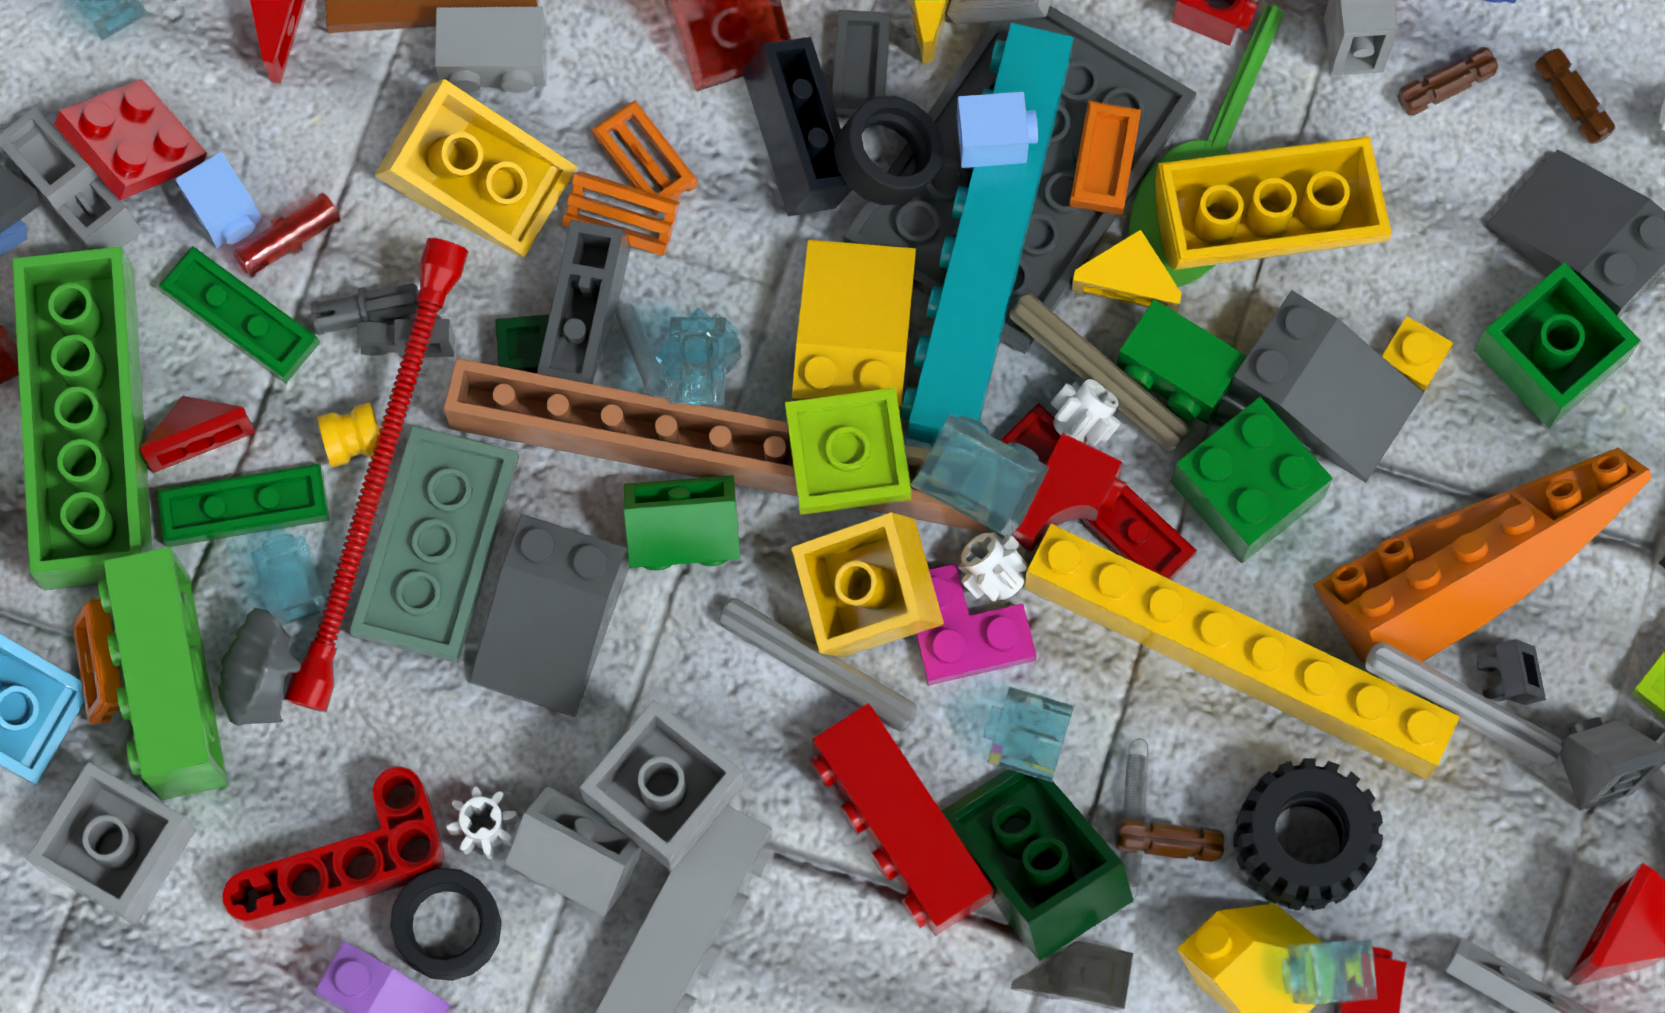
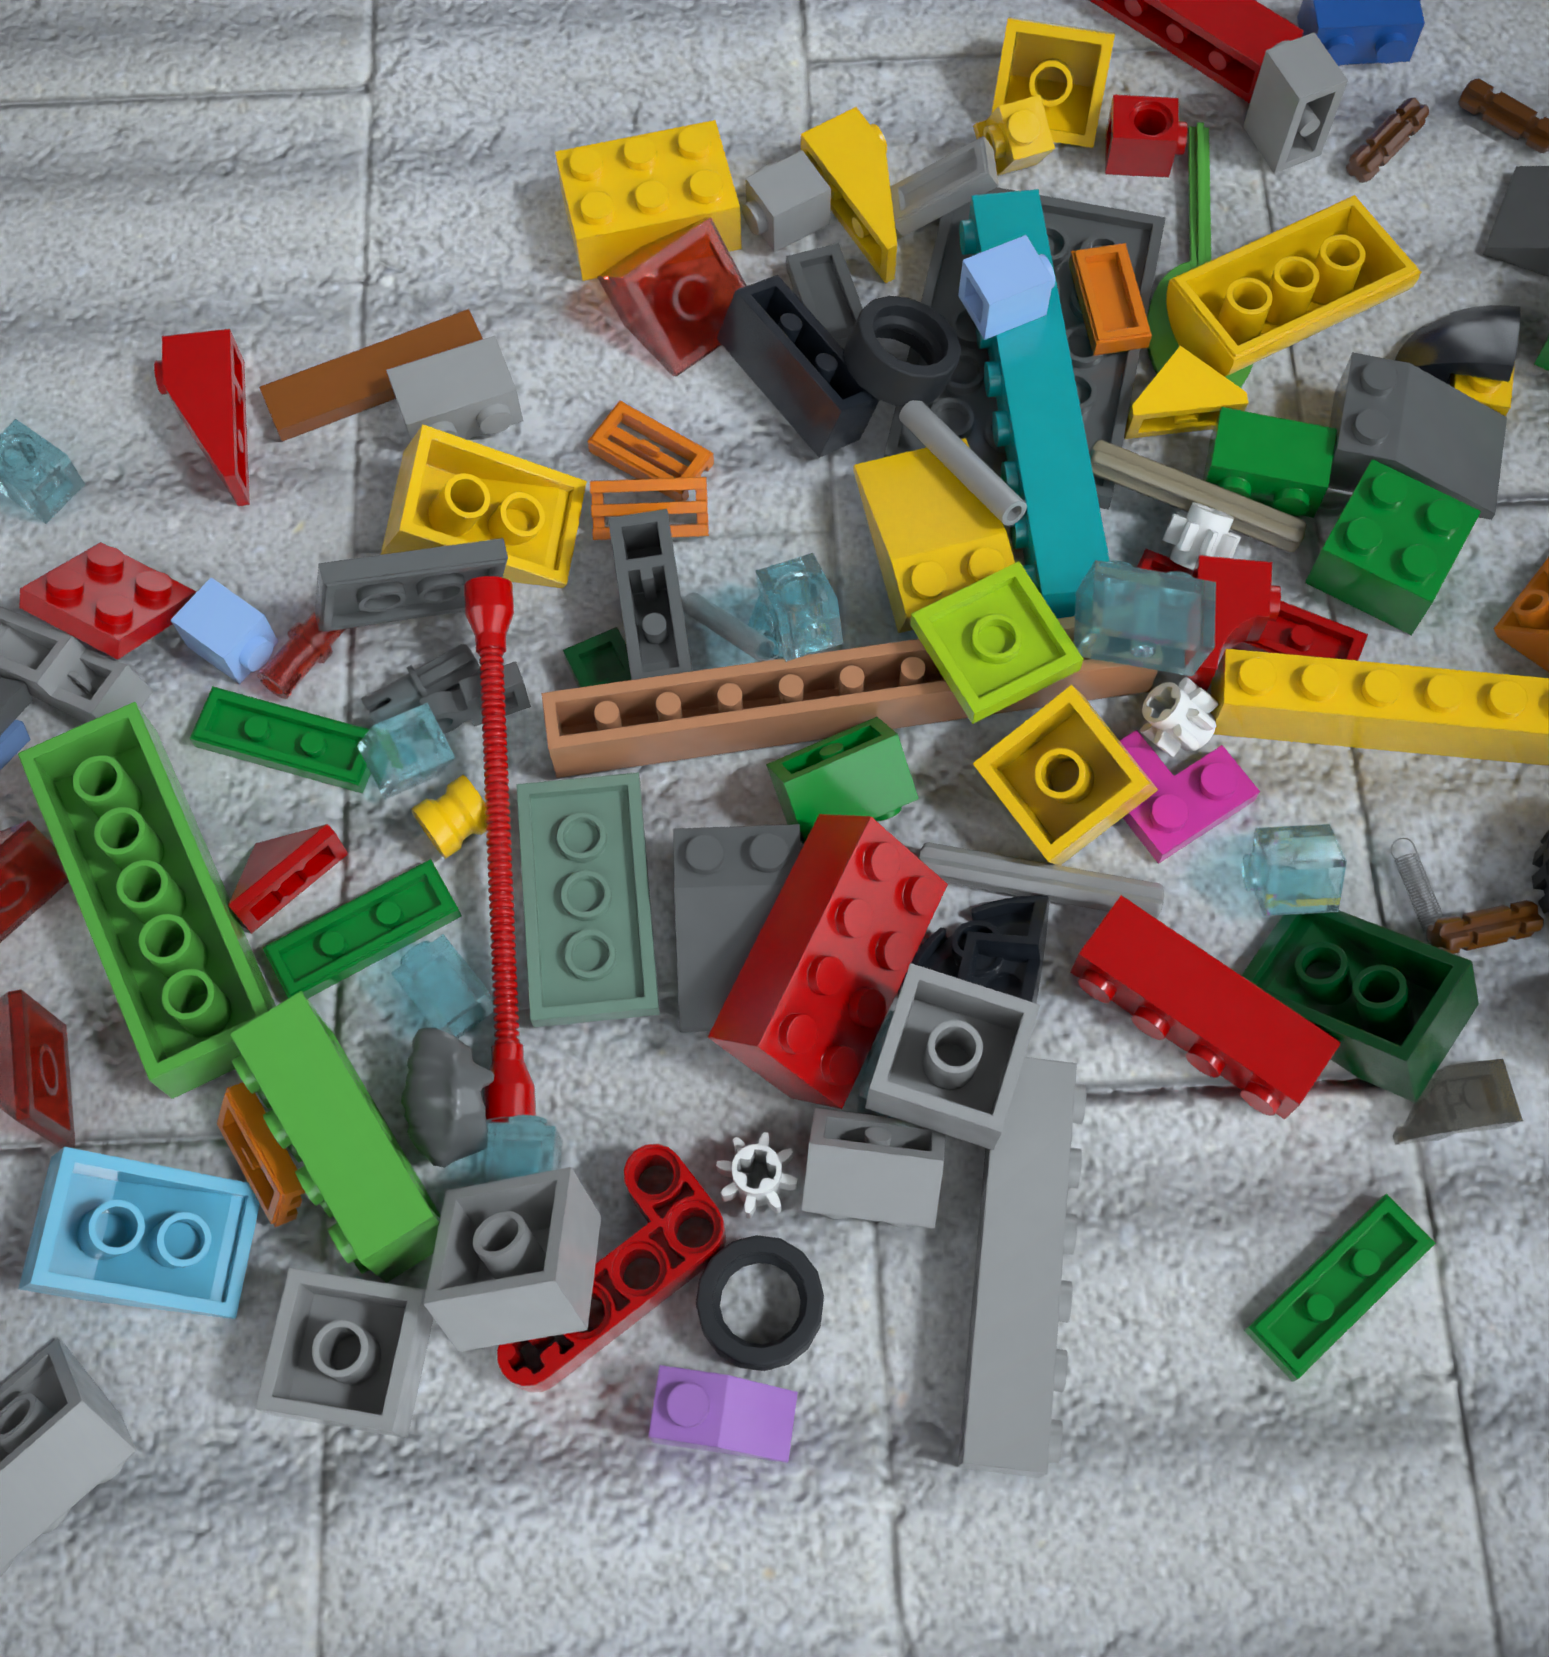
camera: 20 degrees left, 5 degrees down
(261, 818) = (514, 1260): none -> light grey brick
(300, 749) = (522, 1148): none -> clear light blue brick
(330, 365) = (405, 751): none -> clear light blue brick
(379, 220) = (402, 584): none -> dark grey tile
(604, 666) = (829, 960): none -> red brick
(745, 716) = (996, 949): none -> black brick
(896, 274) = (963, 462): none -> light grey piece
(1414, 311) = (1467, 343): none -> black brick

